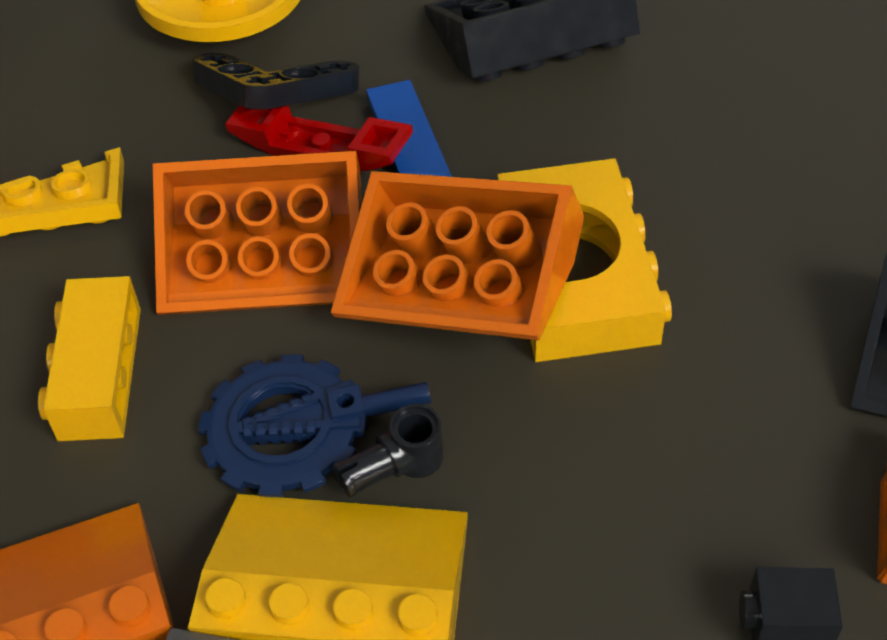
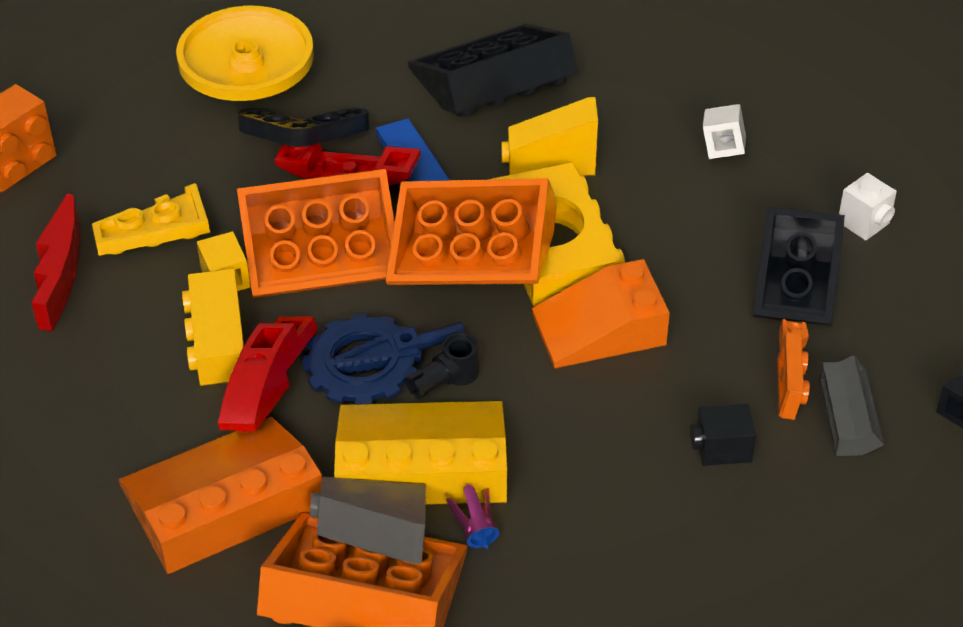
camera: 10 degrees left, 5 degrees down
(126, 252) = (224, 253): none -> yellow brick
(130, 436) = (260, 372): none -> red slope
(596, 125) = (555, 139): none -> yellow slope
(632, 392) = (604, 316): none -> orange slope
(831, 129) = (724, 131): none -> white brick

